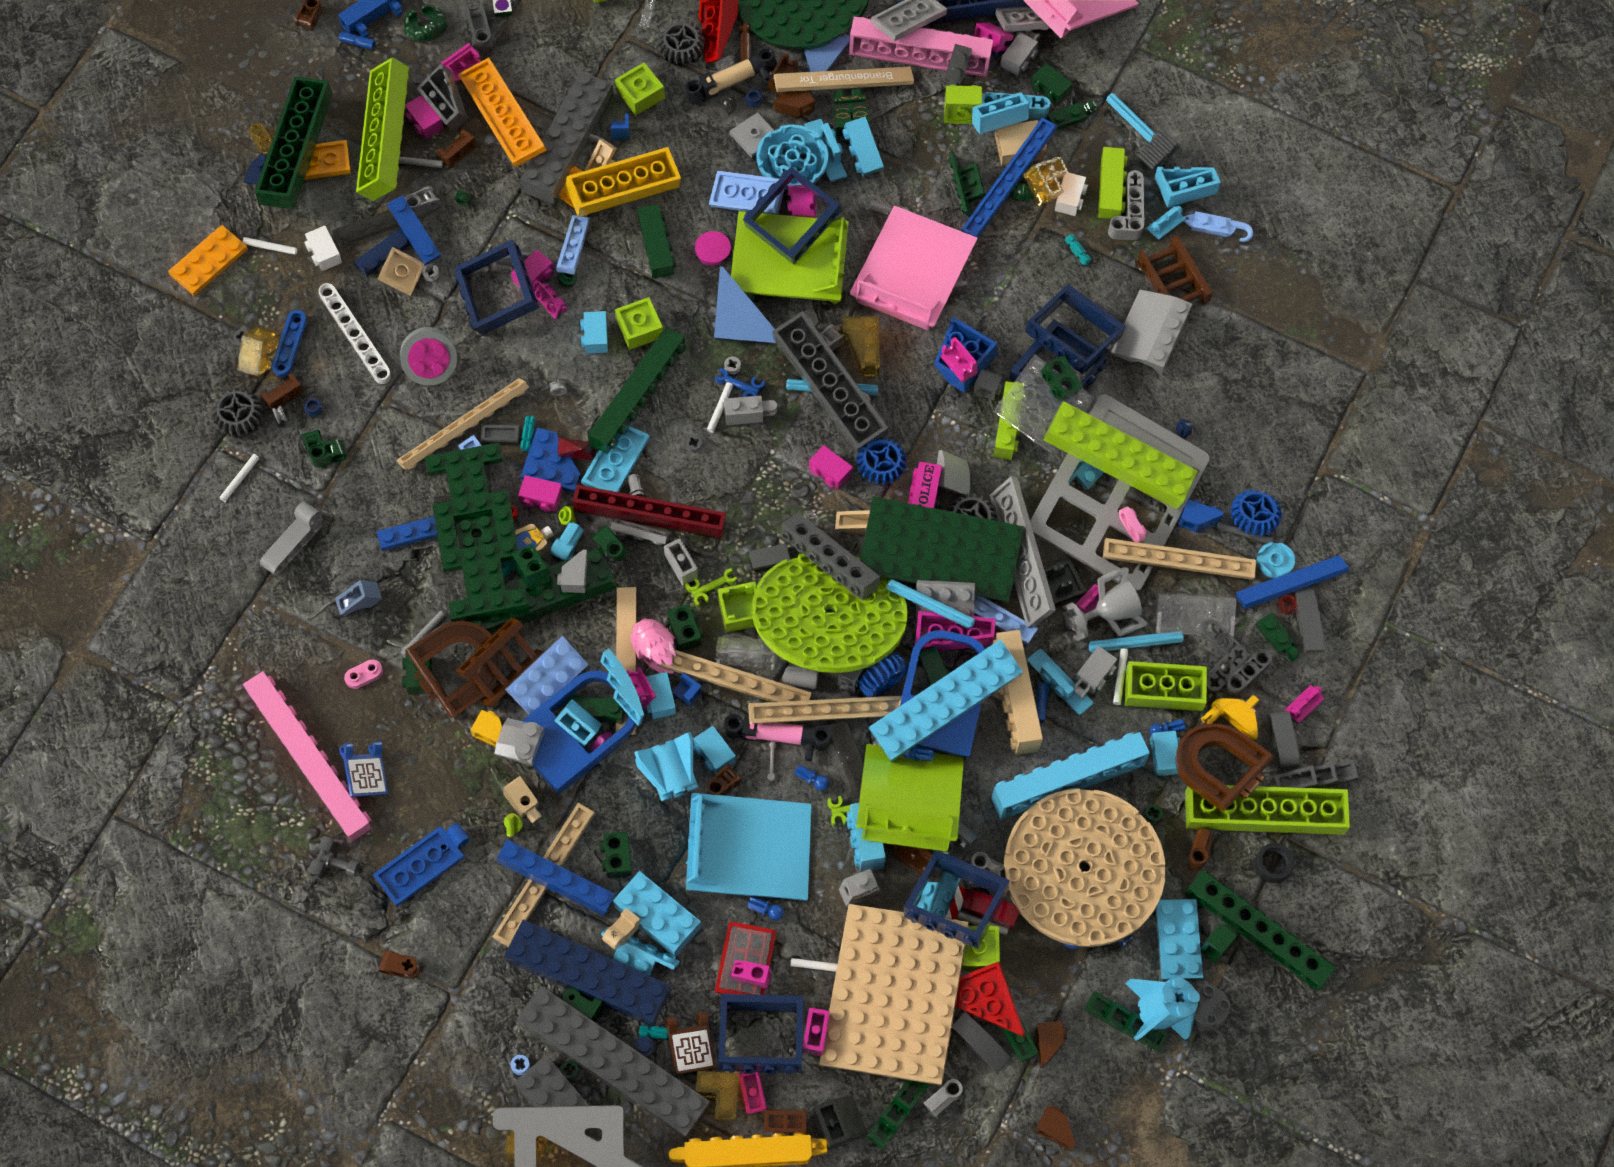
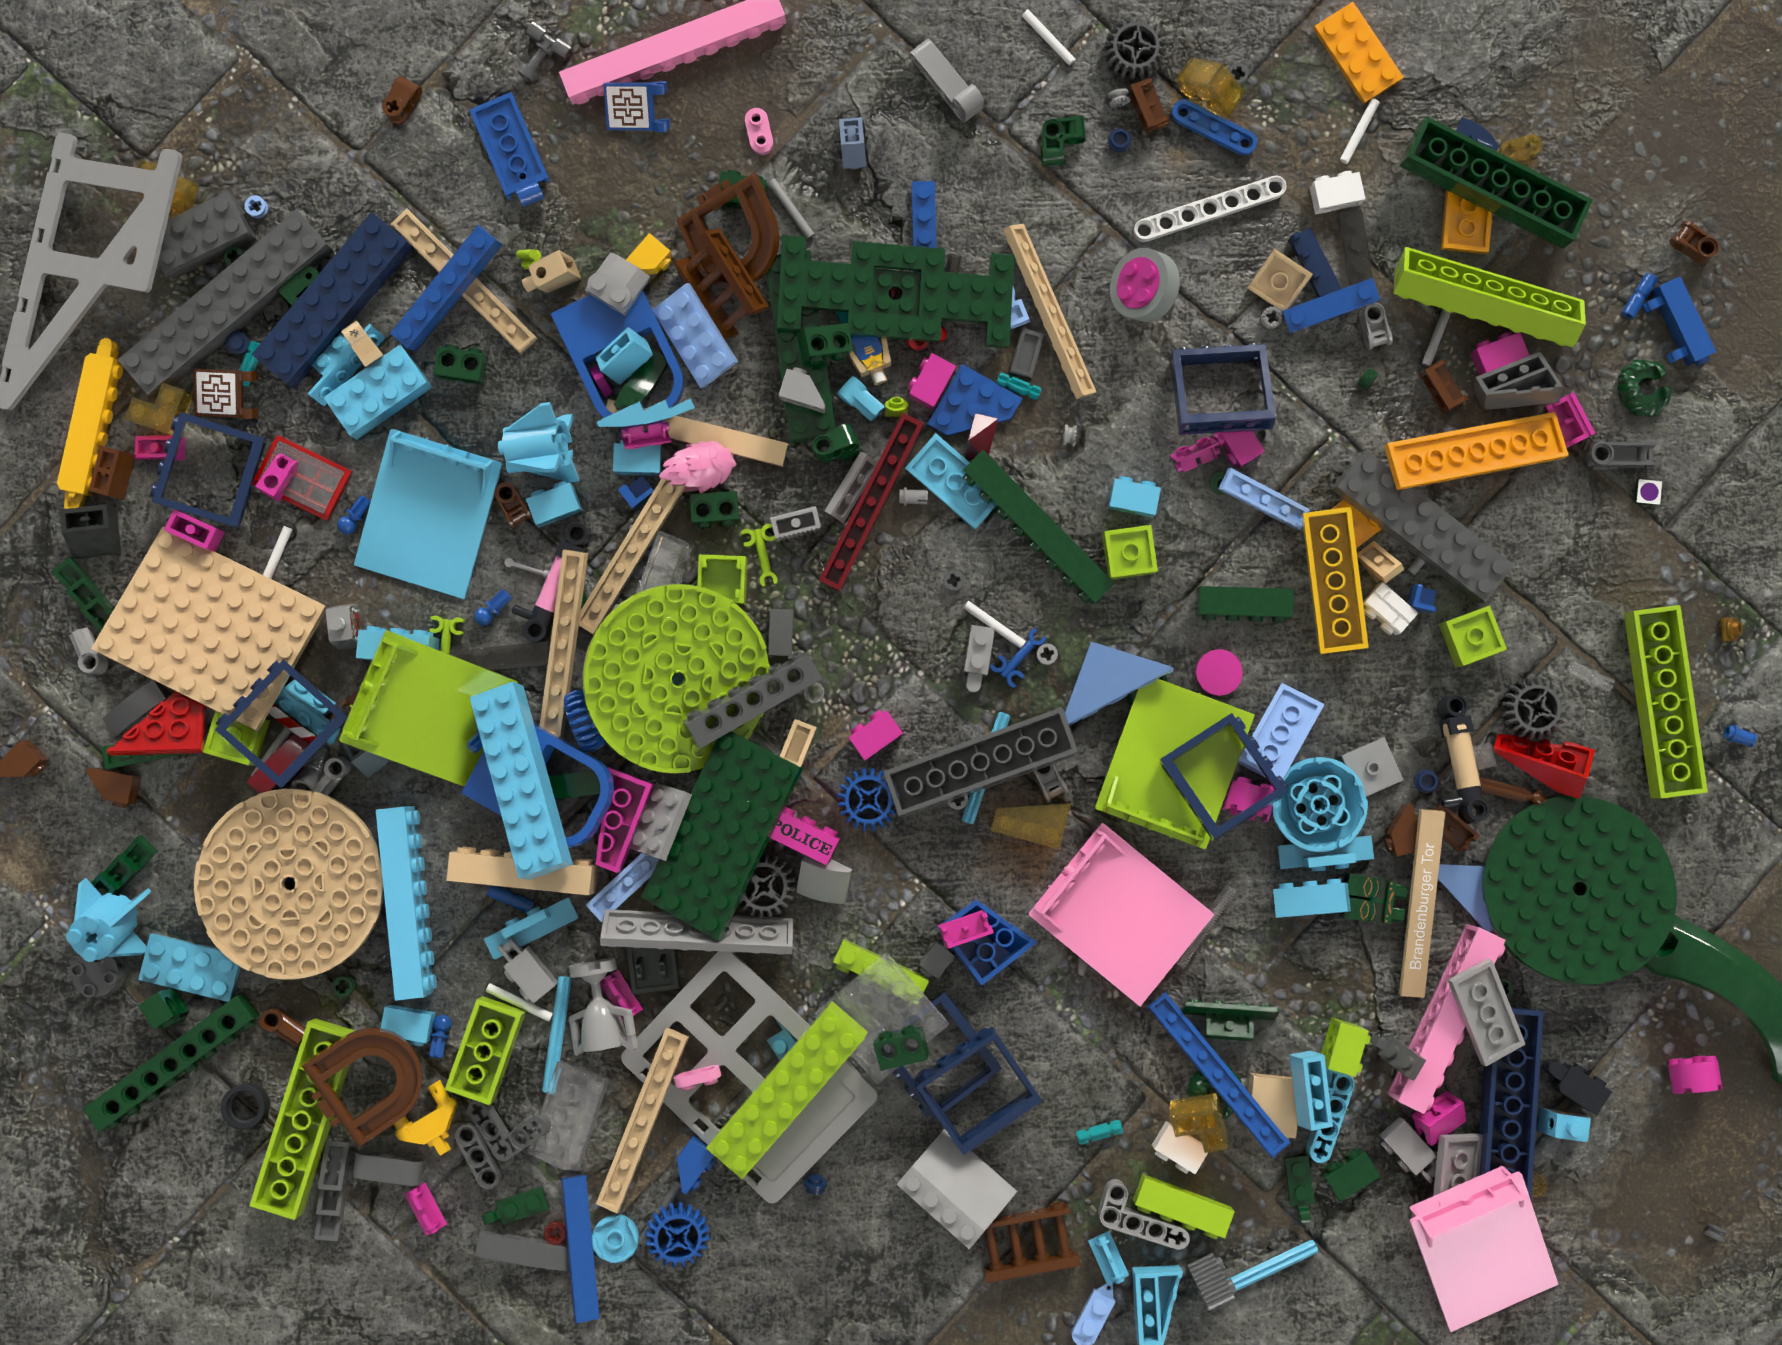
camera: 110 degrees right, 20 degrees up
(634, 144) = (1388, 609): none -> white brick
(930, 604) = (672, 782): medium azure axle -> none

